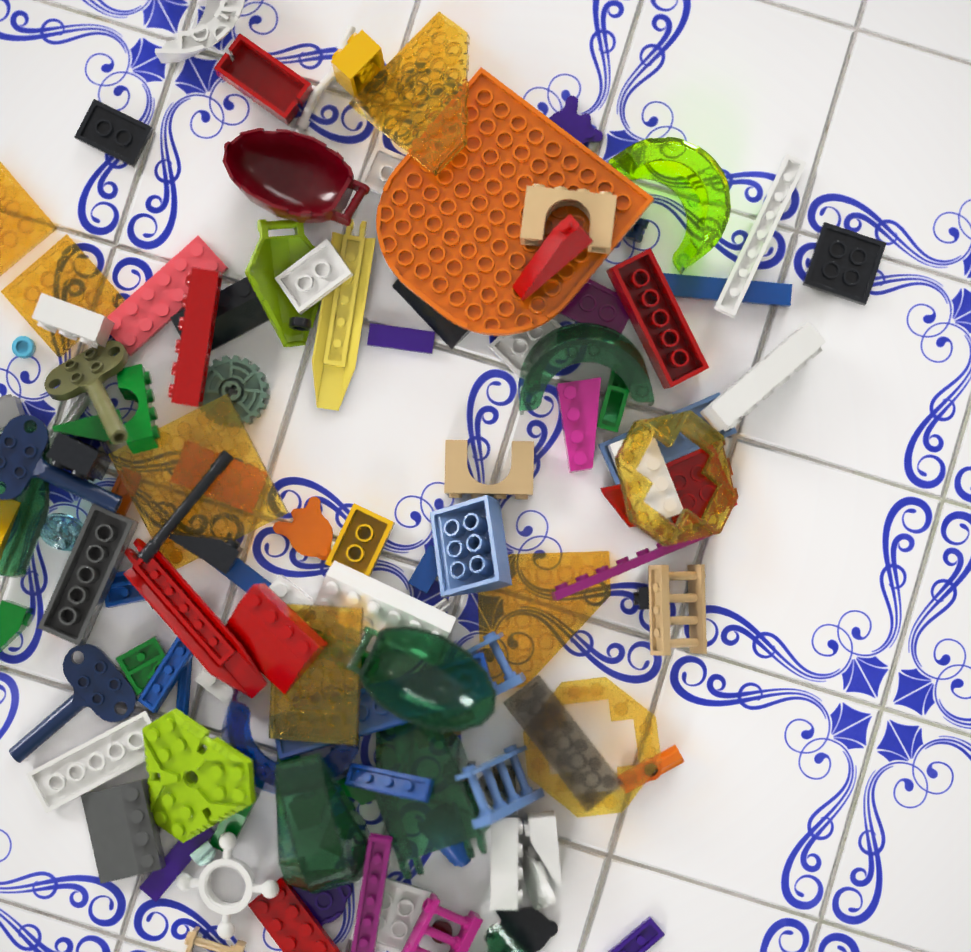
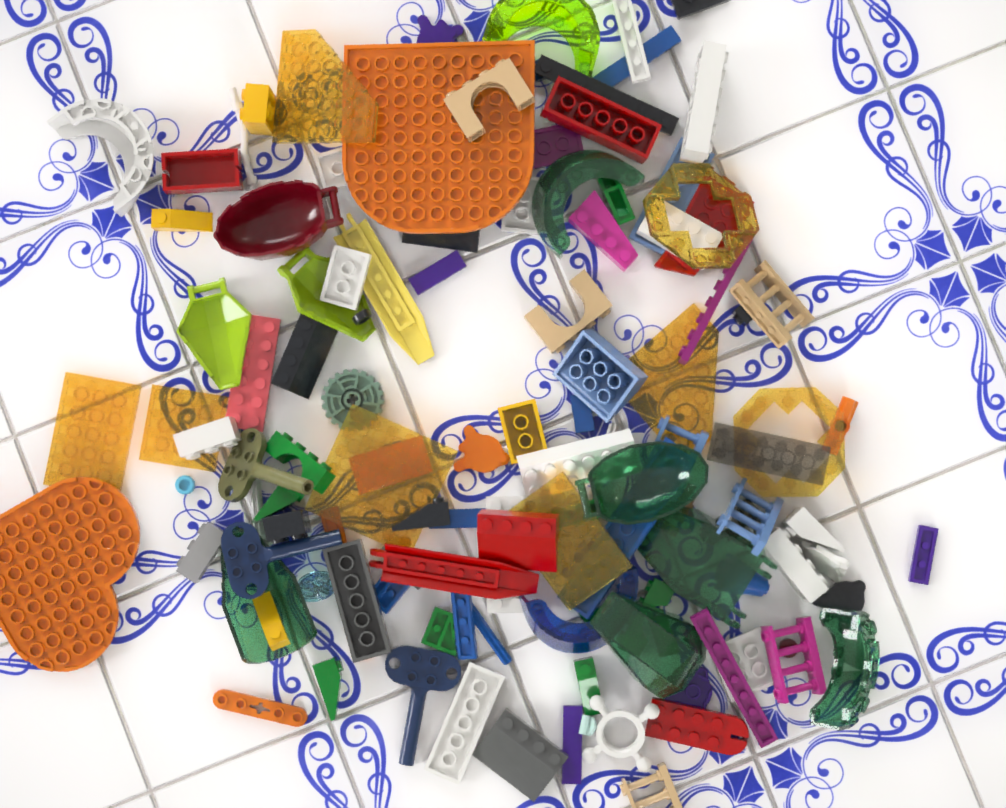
camera: 30 degrees left, 0 degrees up
(114, 133) = (128, 290): black plate -> none
(156, 542) = (387, 543): black piece -> none
(159, 233) = (216, 332): none -> lime windscreen
(194, 782) = (540, 698): lime plate -> none
(196, 337) = (302, 380): red brick -> none
(210, 108) = (181, 220): none -> yellow slope
(389, 782) = (675, 573): blue tile -> none
(557, 250) = (499, 125): red wedge -> none
(650, 237) = (552, 69): none -> black plate

